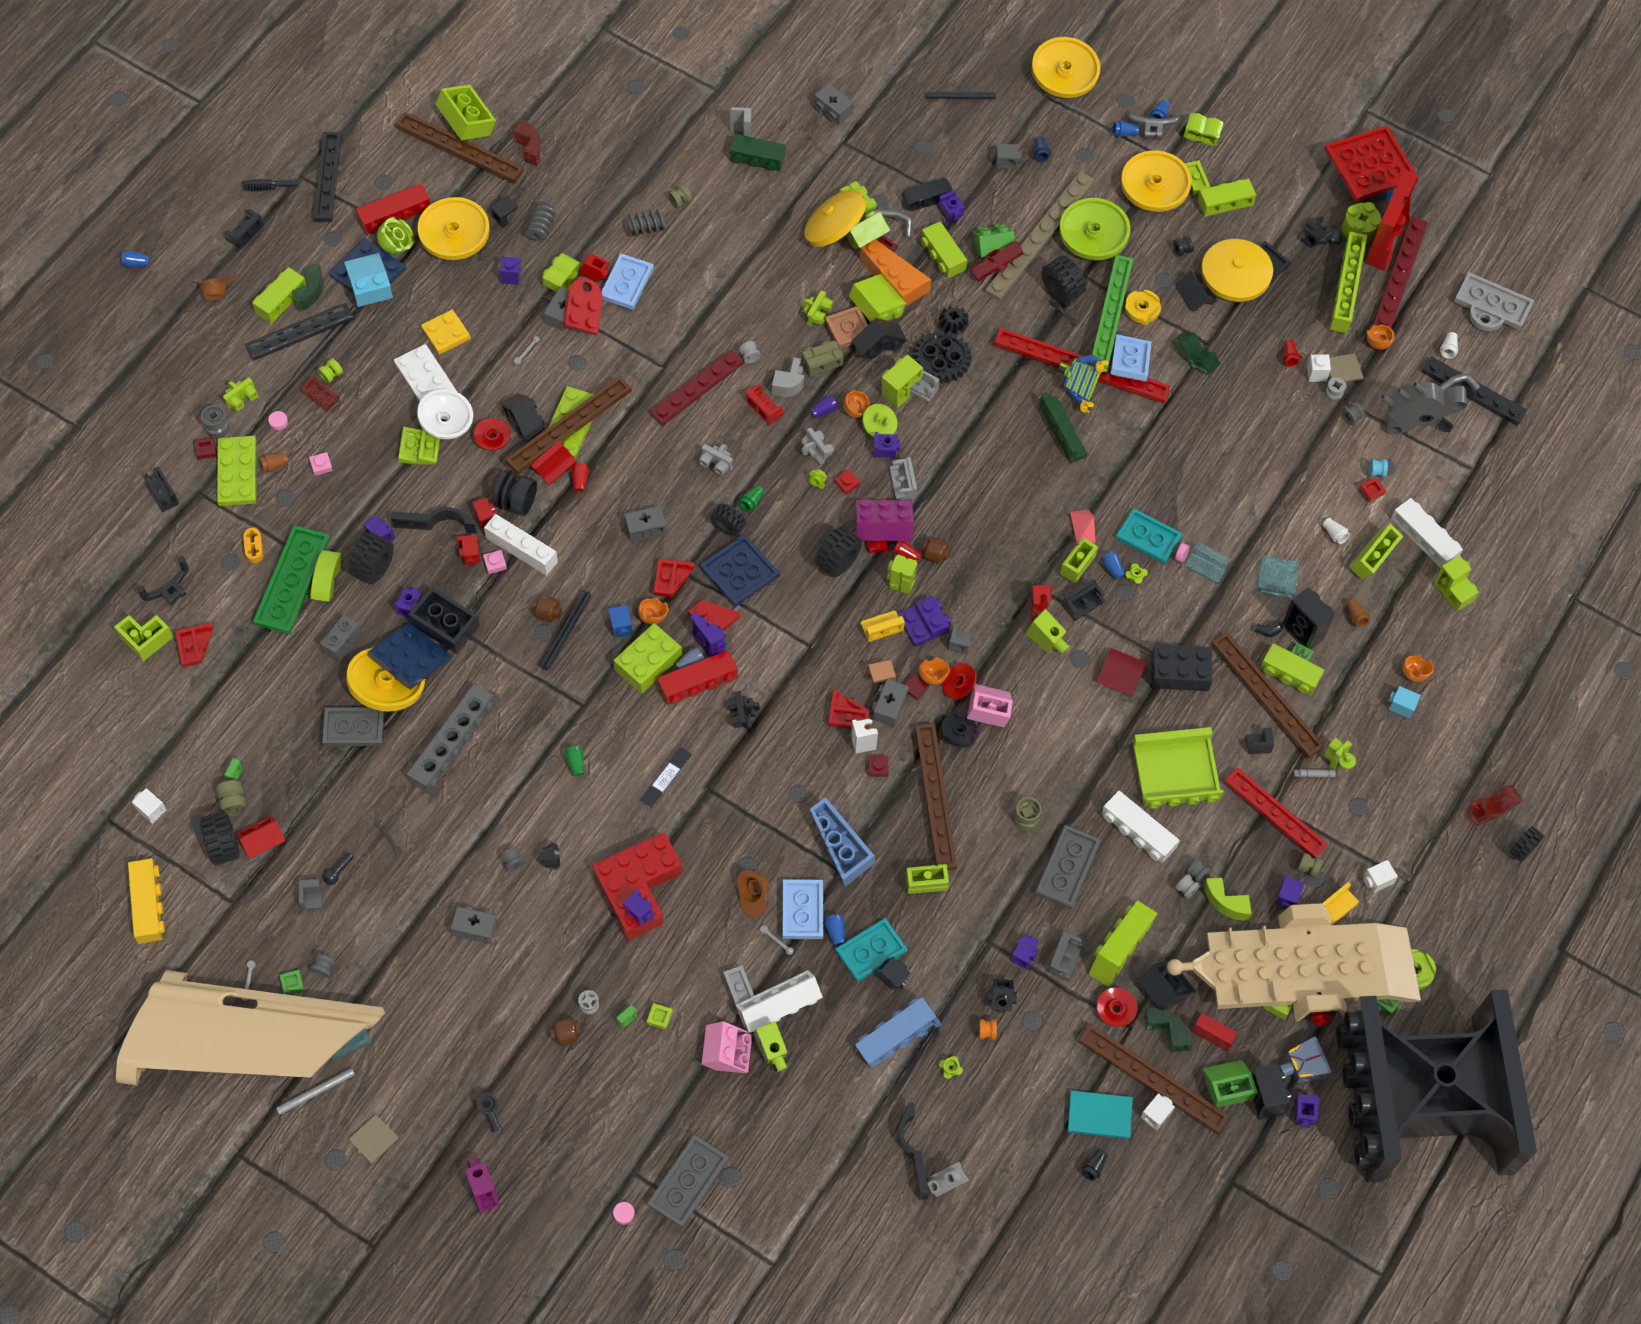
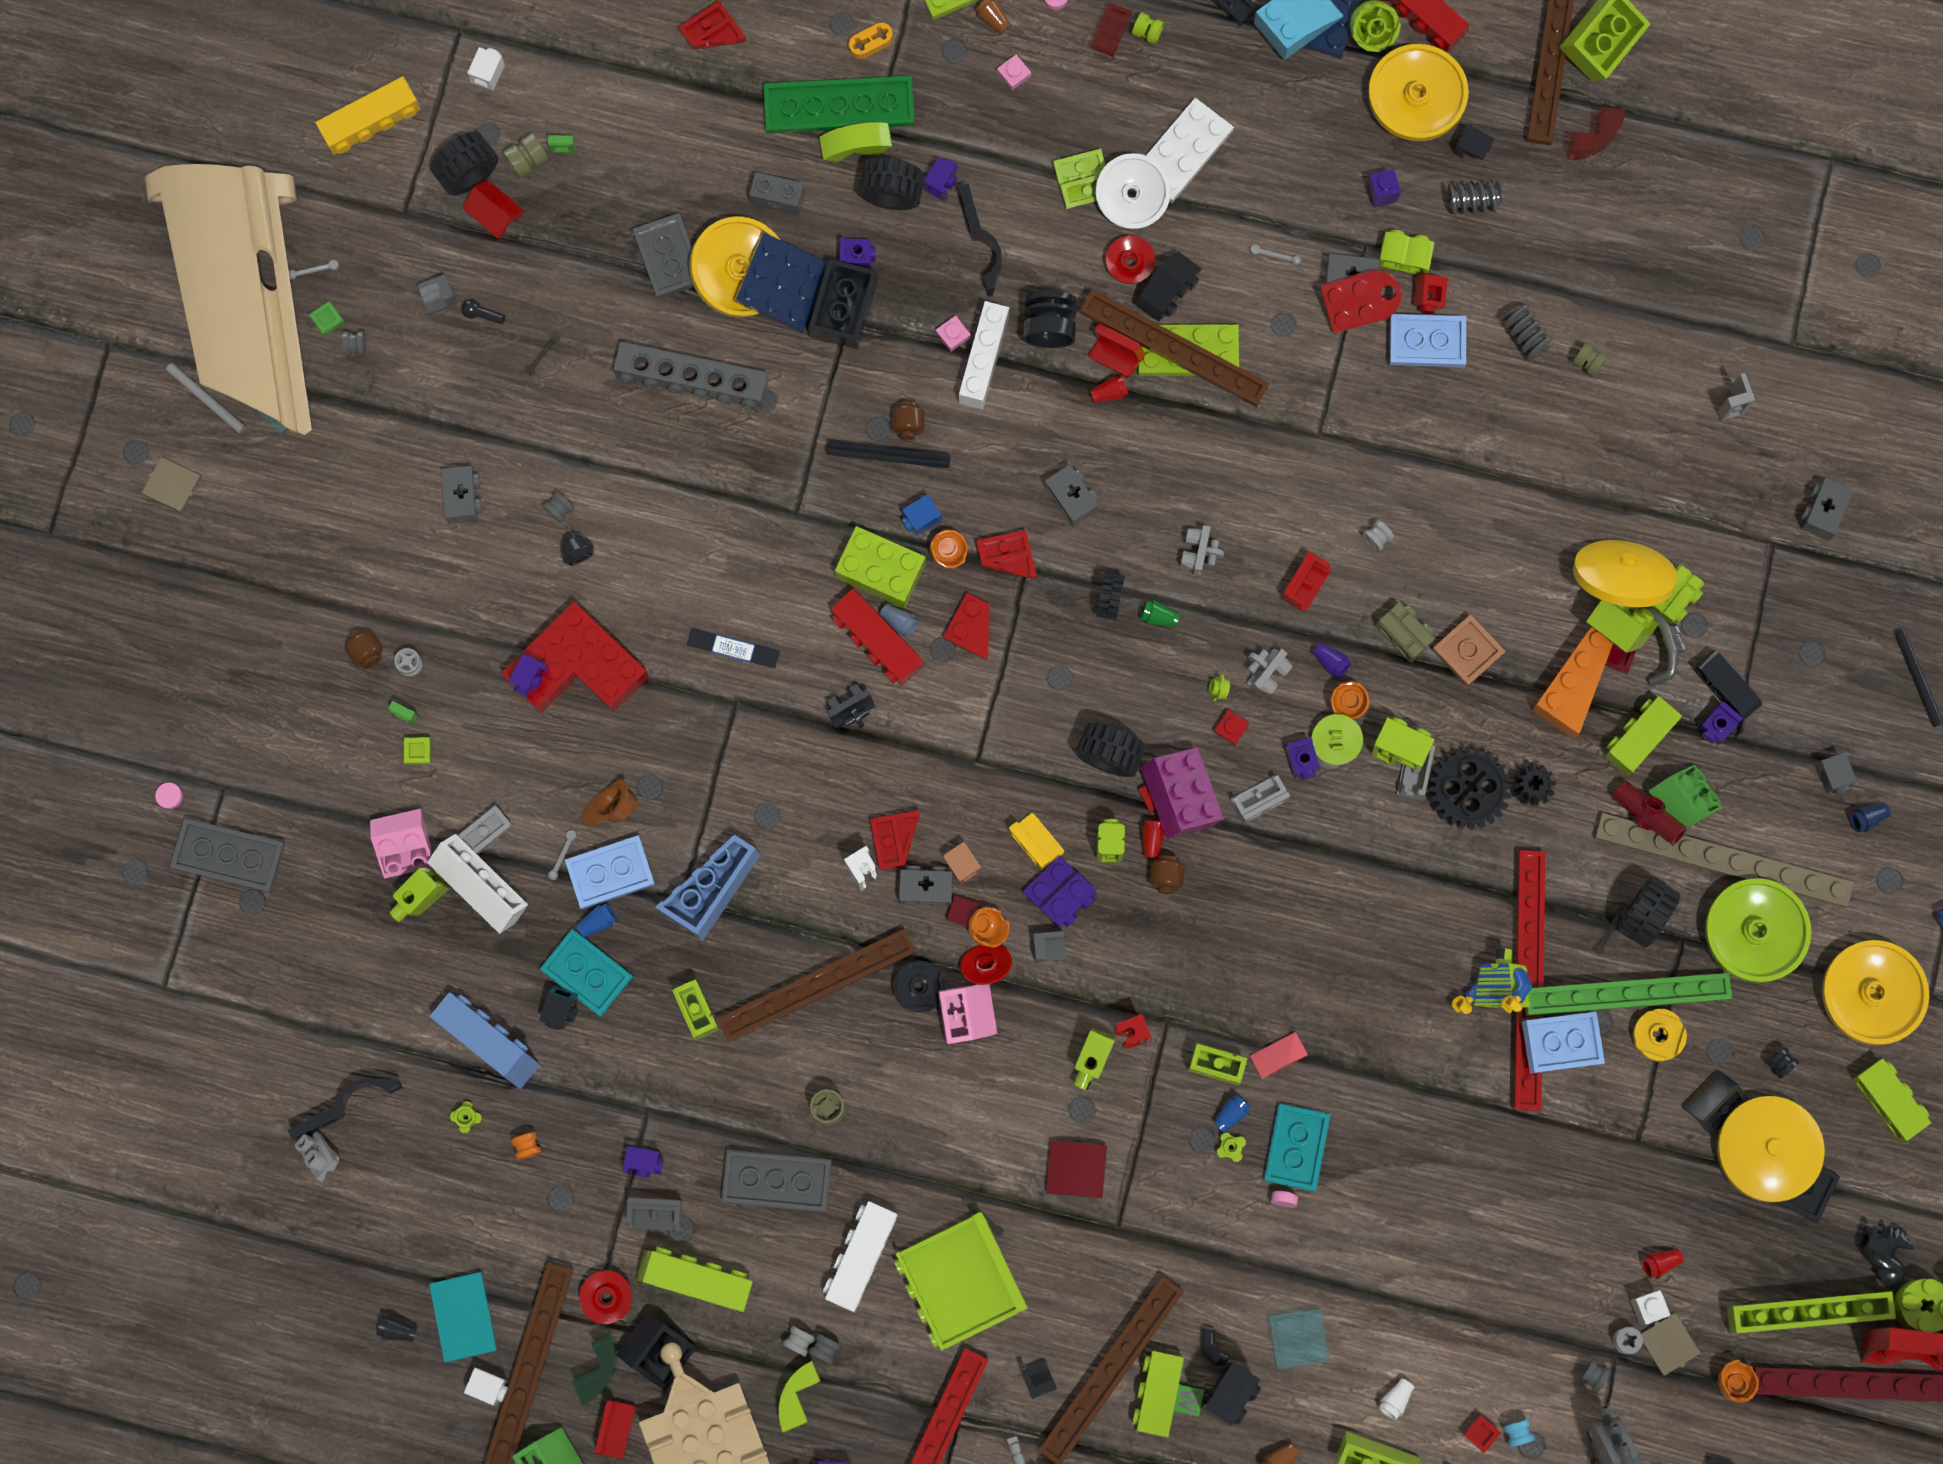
camera: 75 degrees right, 15 degrees up
(445, 332) = (1263, 145): yellow plate -> none
(469, 549) = (954, 297): red brick -> none
(481, 1185) = (147, 623): magenta torso -> none
(483, 511) = (1014, 293): red brick -> none
(490, 1110) = (239, 598): black bar -> none
(575, 760) = (713, 531): green cone -> none
(696, 387) = (1302, 487): dark red plate -> none
(708, 636) = (929, 635): dark purple plate -> none
(739, 570) = (1048, 636): dark blue plate -> none
(757, 152) = (1702, 435): dark green brick -> none
(786, 383) = (1350, 605): light grey brick -> none
(814, 308) = (1492, 601): lime hips -> none
(877, 299) = (1522, 674): lime brick -> none
(878, 336) = (1461, 696): black brick -> none
(878, 766) = (836, 901): dark red plate -> none
(1002, 995) = (572, 1150): black brick -> none
(1062, 428) = (1420, 984): dark green fence -> none
(1083, 600) = (1164, 1089): black hinge -> none
(1181, 667) = (1108, 1246): black brick -> none
(1193, 353) = (1608, 1129): clear green brick -> none
(1198, 177) = (1910, 1048): lime plate -> none
(1208, 562) = (1281, 1237): clear light blue panel -> none

